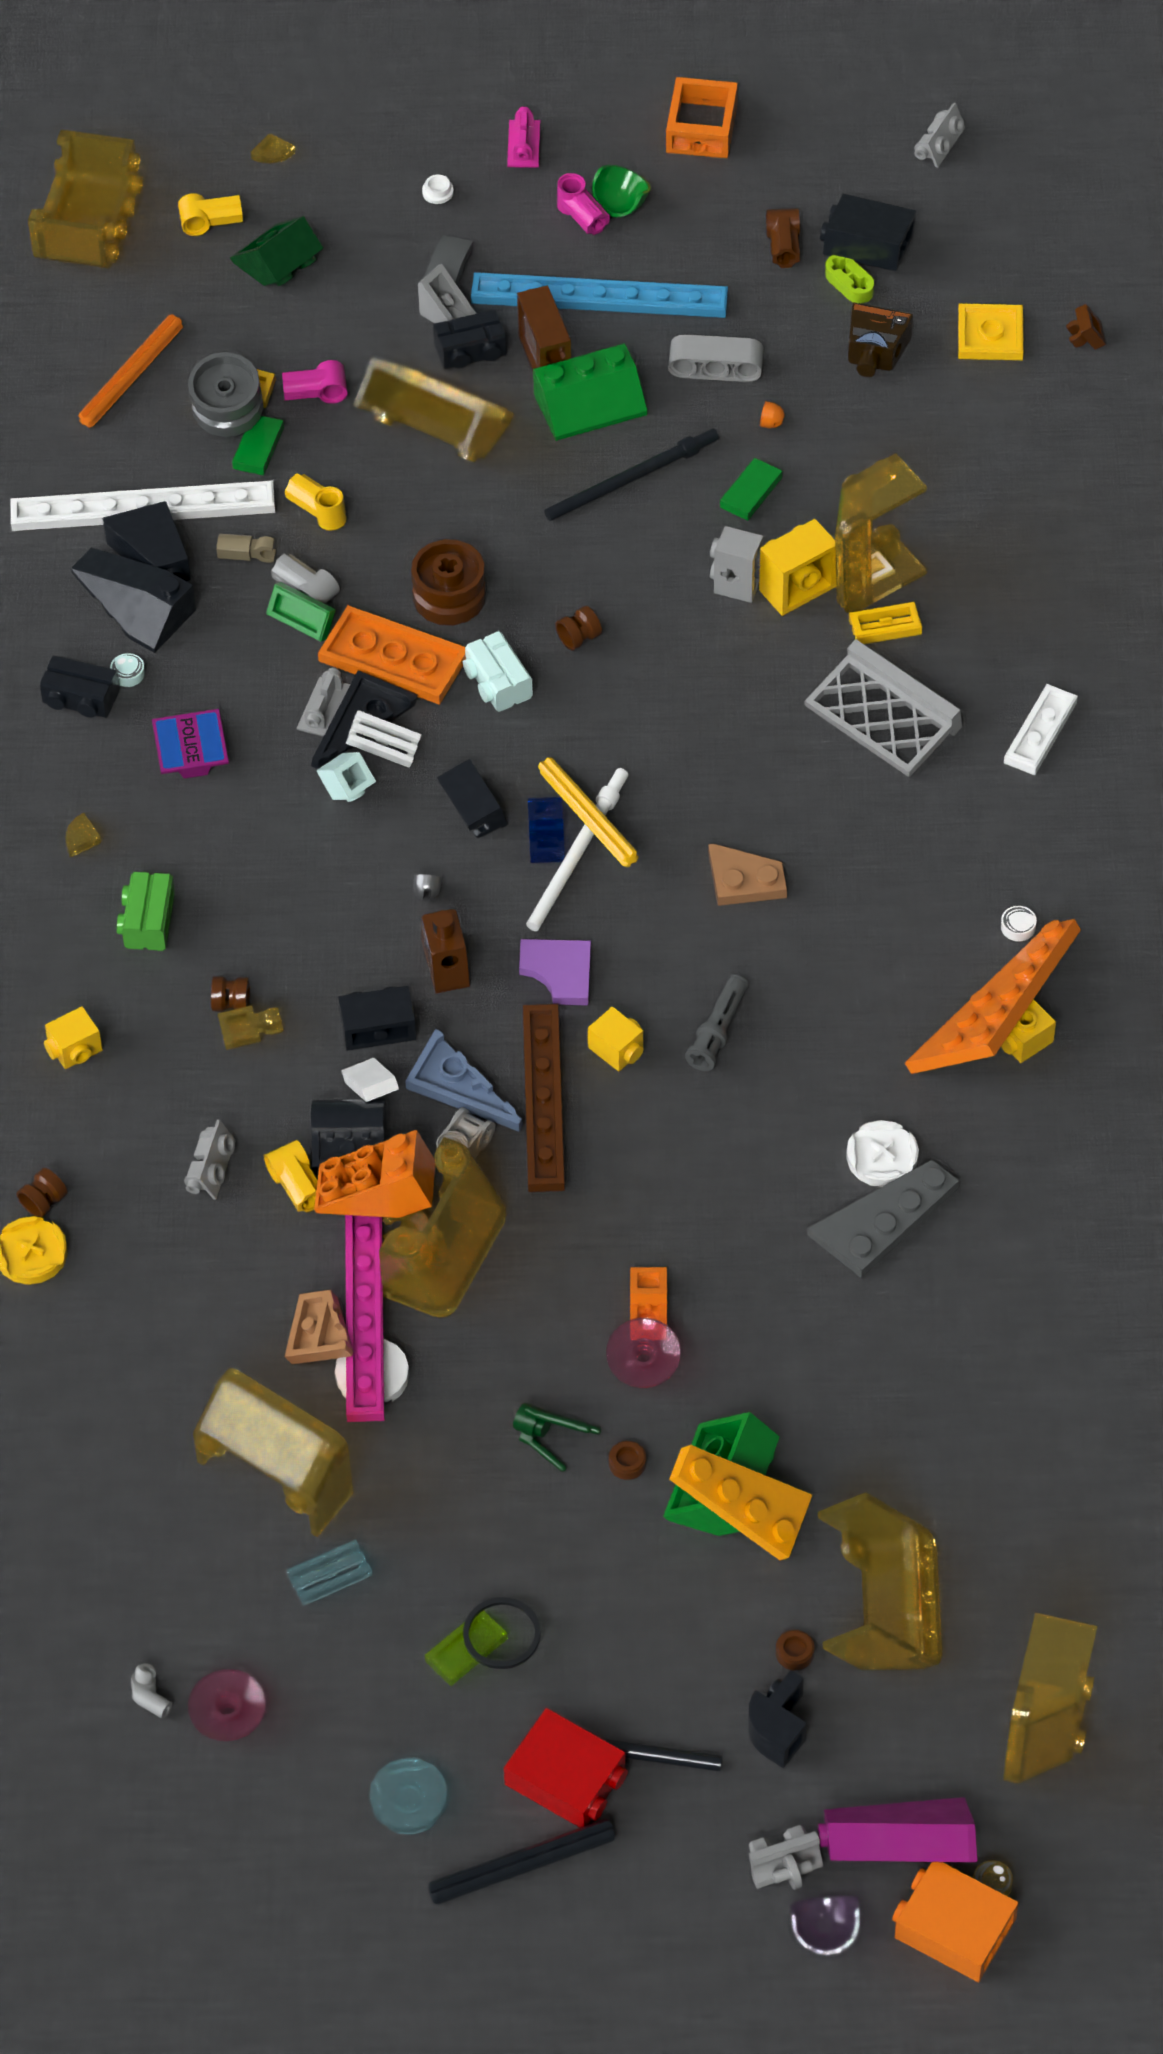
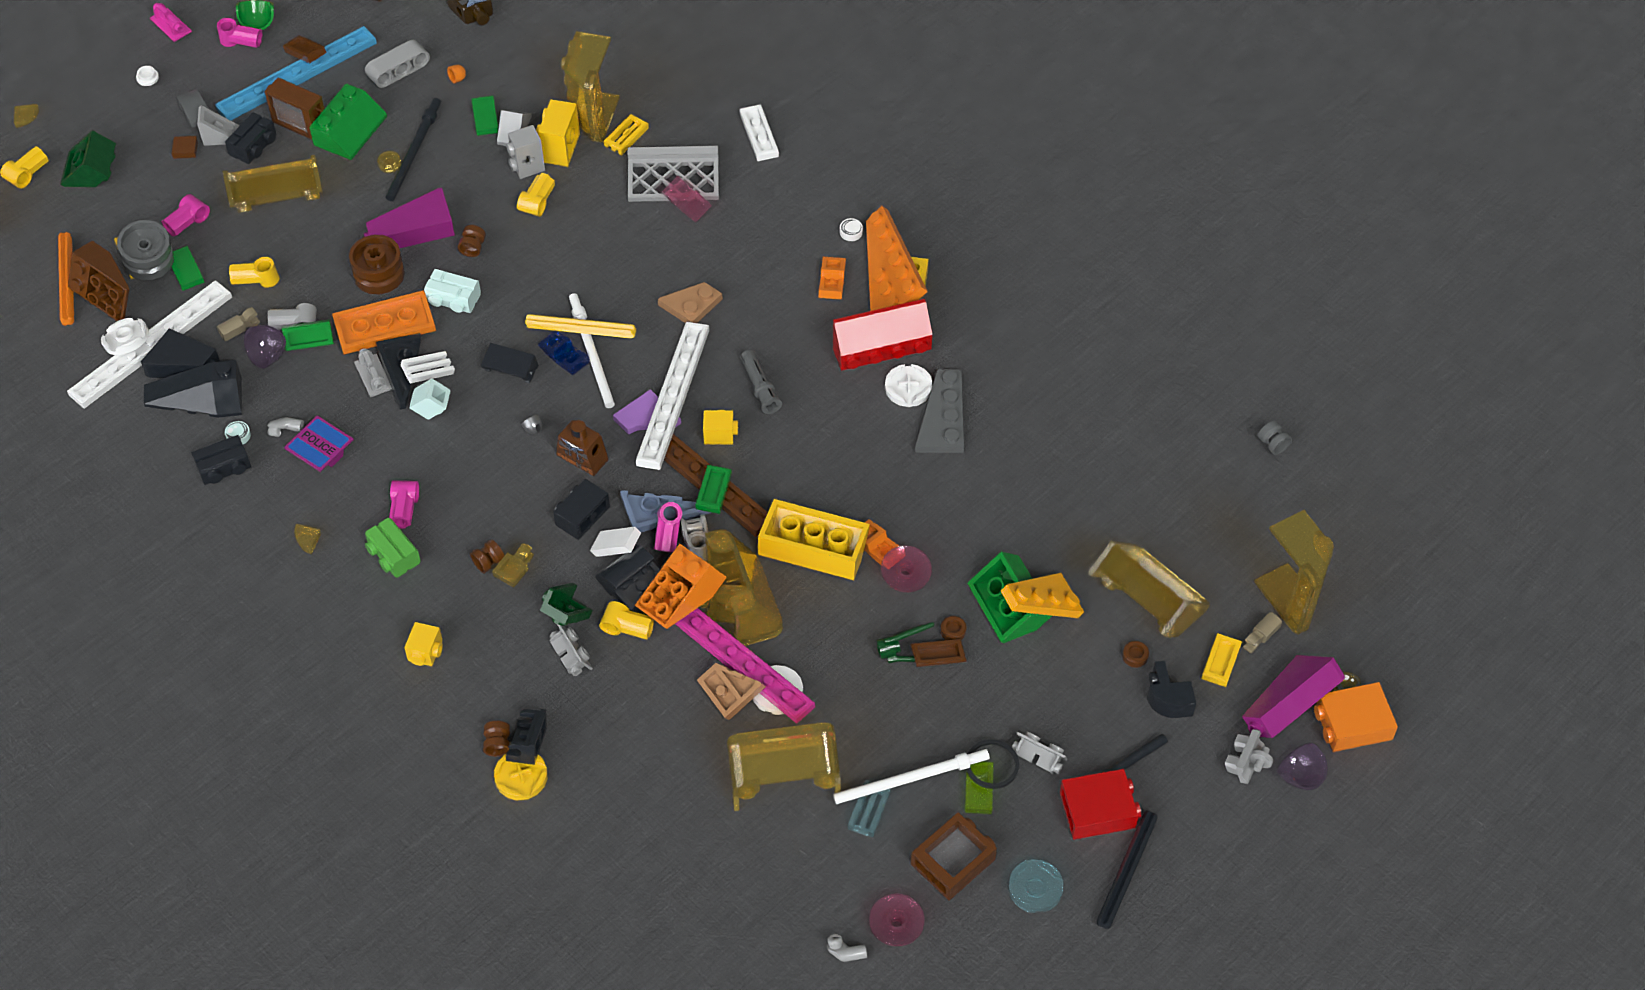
camera: 45 degrees left, 0 degrees up
(71, 1218) = (528, 737): none -> black hinge
(122, 479) = (125, 336): none -> white tile
(146, 392) = (99, 280): none -> reddish brown slope
(182, 693) = (284, 423): none -> light grey arm
(215, 863) = (403, 497): none -> dark pink piece
(244, 1106) = (561, 606): none -> dark green bracket
(245, 590) = (264, 345): none -> clear purple helmet
(361, 1691) = (954, 855): none -> reddish brown window
(395, 302) = (184, 147): none -> reddish brown tile
(435, 1108) = (667, 530): none -> dark pink piece
(465, 1600) = (961, 762): none -> white bar
(531, 1102) = (713, 489): none -> green tile
(540, 562) = (416, 221): none -> magenta slope
(575, 1239) = (813, 539): none -> yellow slope
(575, 1675) = (1049, 756): none -> light grey hinge
(578, 1470) = (938, 653): none -> reddish brown tile
(591, 470) = (389, 161): none -> clear yellow tile
(605, 965) = (672, 396): none -> white tile
(632, 271) = (304, 49): none -> reddish brown tile
(695, 629) = (535, 198): none -> yellow piece
(769, 518) = (511, 121): none -> slope
(865, 748) = (686, 199): none -> clear pink slope
(883, 1735) = (1221, 660): none -> yellow tile
(904, 1071) = (882, 334): none -> slope
(934, 965) = (832, 277): none -> orange slope
(961, 1743) = (1262, 632): none -> dark tan bar

